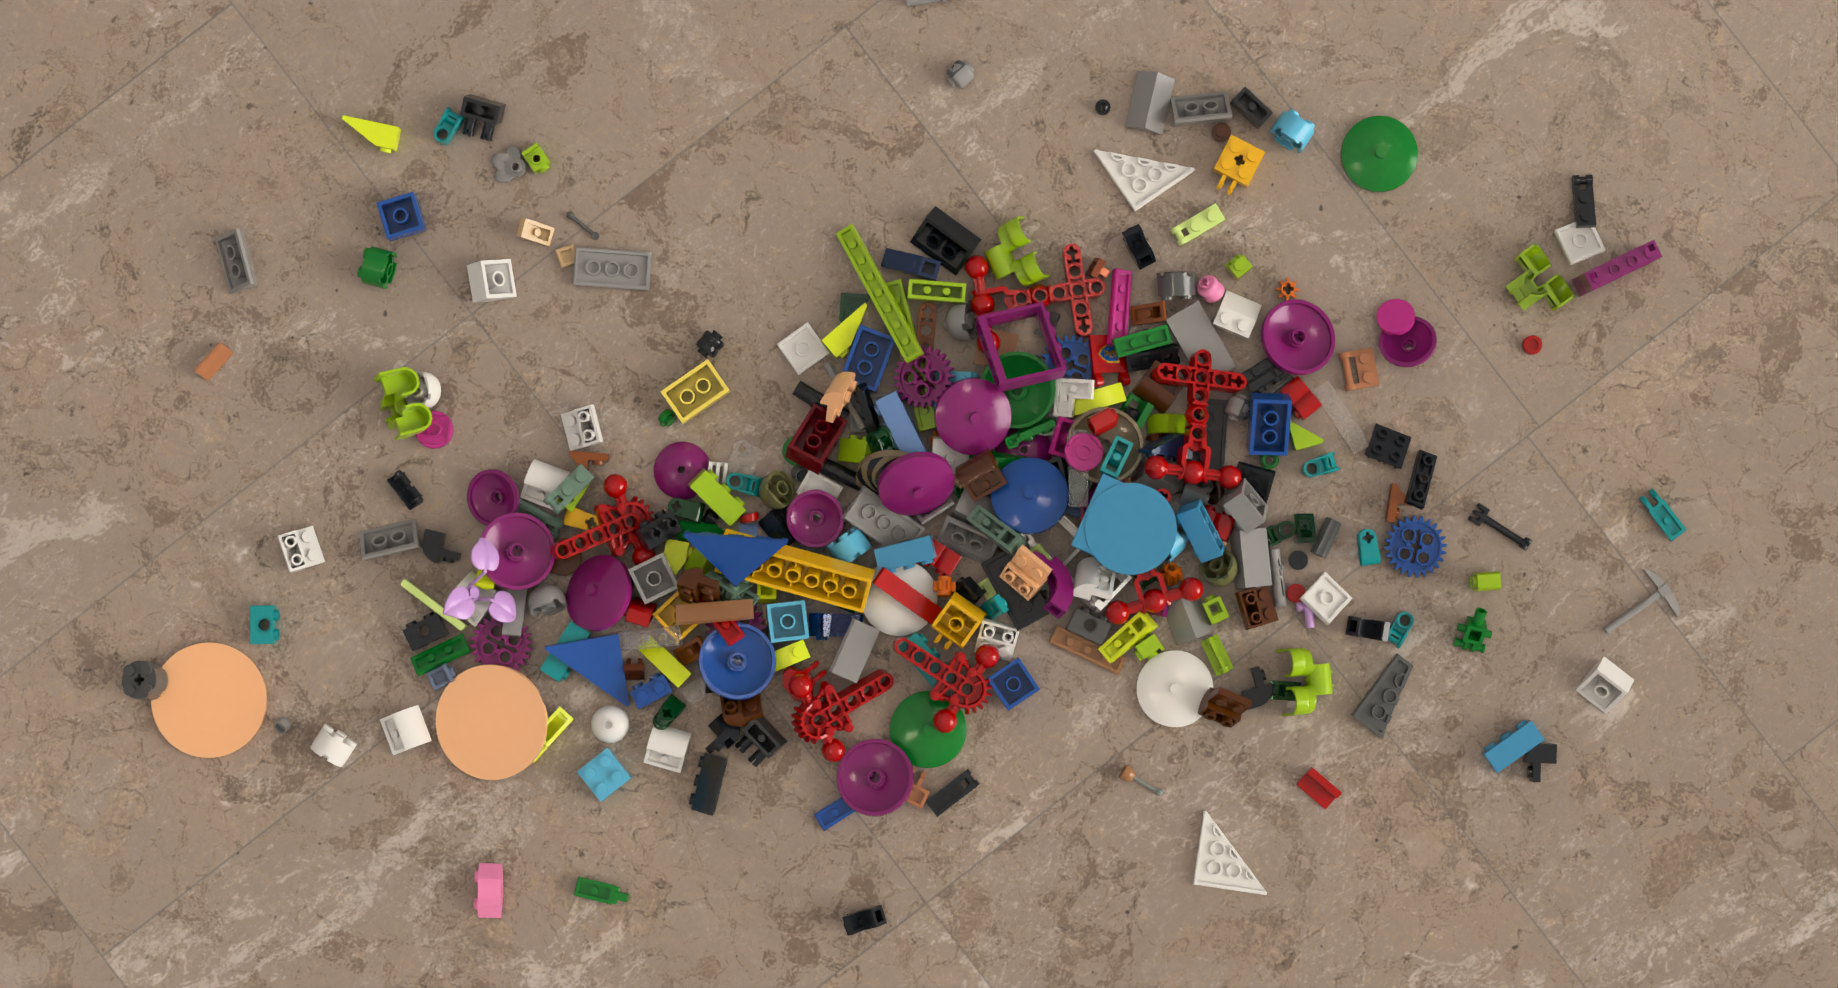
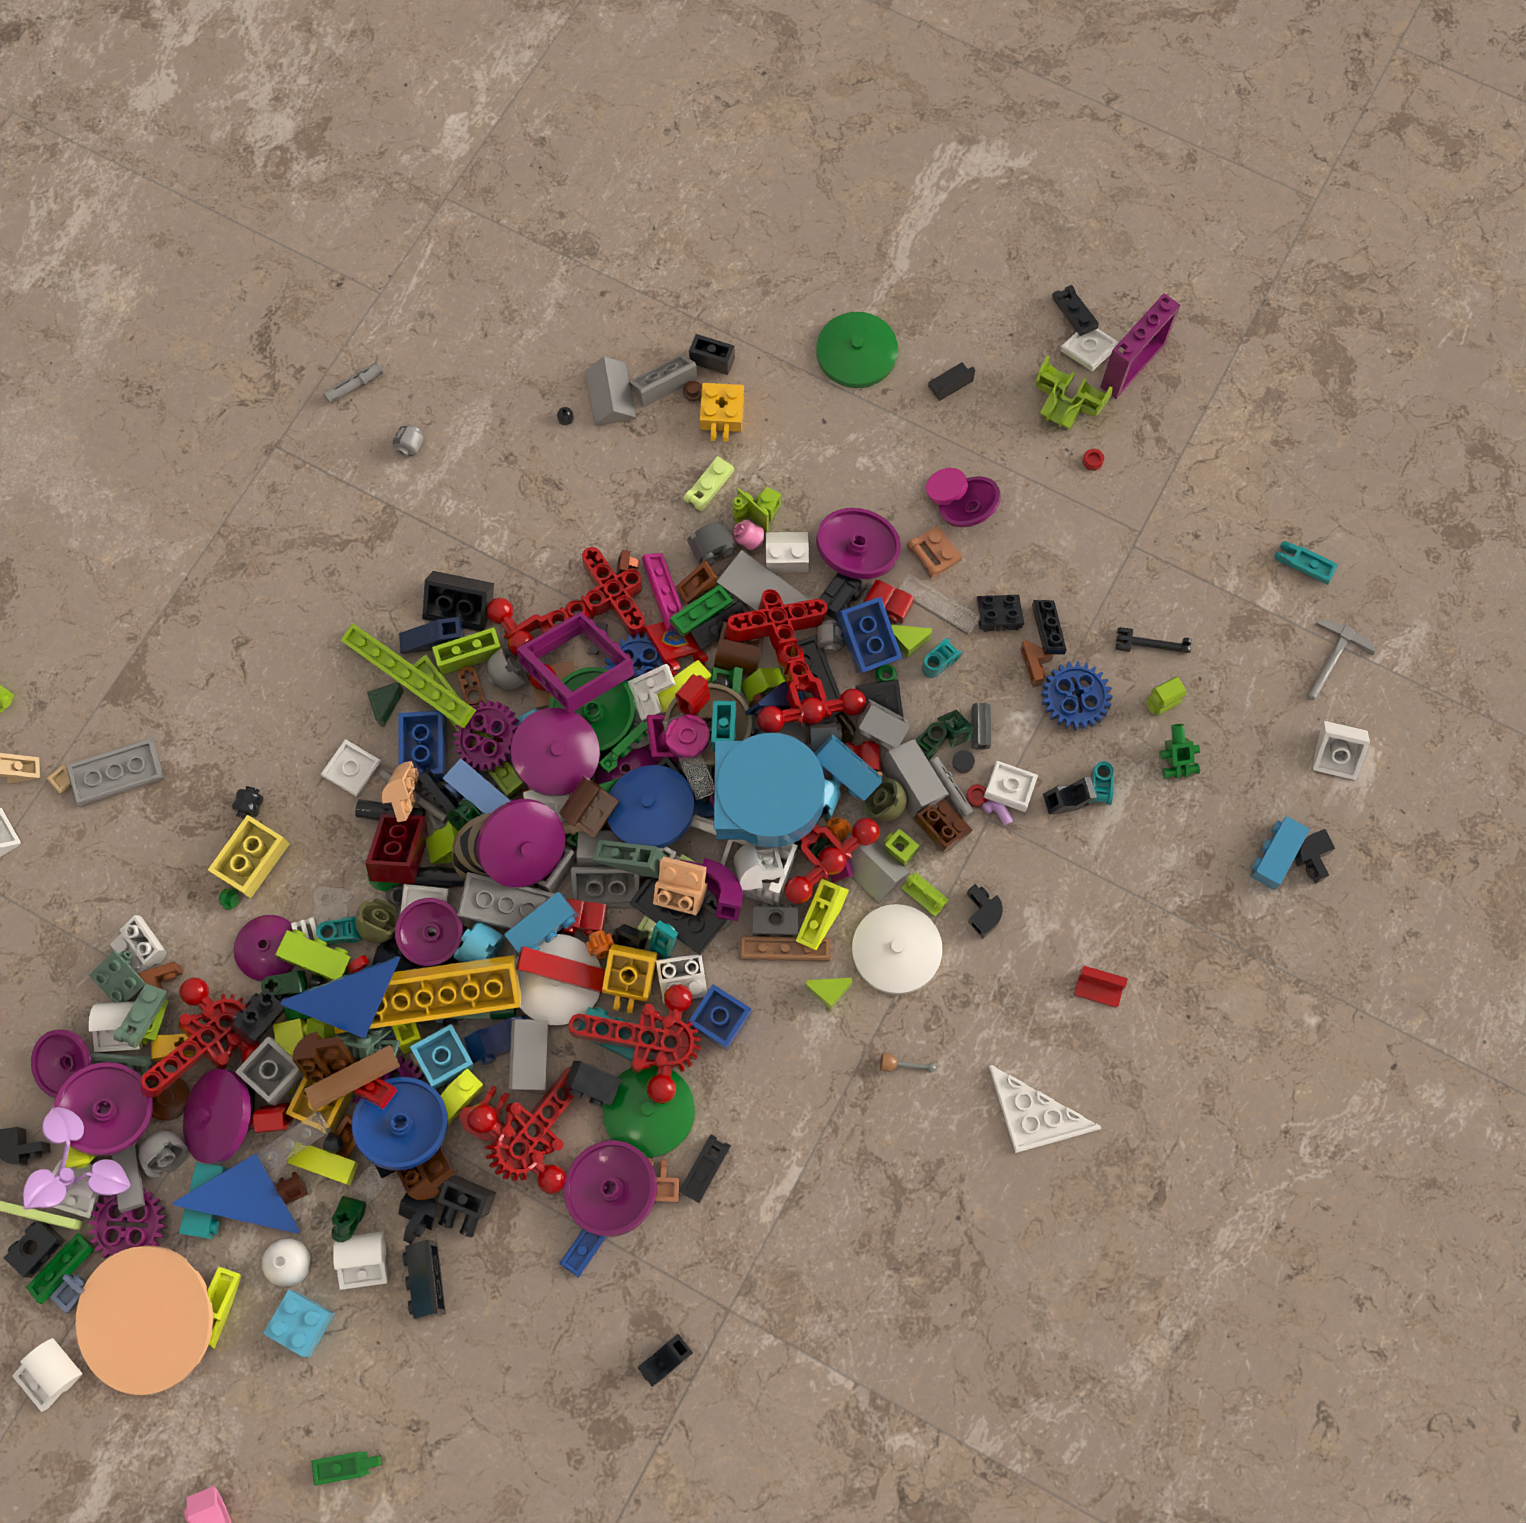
camera: 20 degrees left, 15 degrees down
(559, 447) = (117, 977): none -> sand green hinge
(570, 215) = (85, 747): dark grey hinge -> none
(648, 693) = (318, 1203): blue brick -> none
(679, 652) = (333, 1143): none -> black hinge
(844, 334) = (385, 738): neon yellow slope -> none
(894, 693) = (591, 1083): none -> black brick
(1002, 258) = (524, 594): lime piece -> none
(1106, 699) = (829, 990): none -> lime slope
(1138, 246) = (657, 526): black brick -> none
(1141, 178) = (632, 465): white tile -> none
(1148, 647) = (848, 916): lime brick -> none
(1219, 262) = (745, 507): none -> lime hinge
(1223, 706) = (957, 941): reddish brown brick -> none
(1279, 691) = (1015, 898): clear green slope -> none
(1291, 286) = (825, 510): orange gear -> none
(1292, 130) = (762, 358): medium azure brick -> none
(1317, 680) = (1041, 868): lime piece -> none
(1368, 551) = (1030, 720): teal piece -> none
(1380, 701) = (1119, 864): dark grey wing -> none
(1446, 219) = (951, 381): none -> black panel

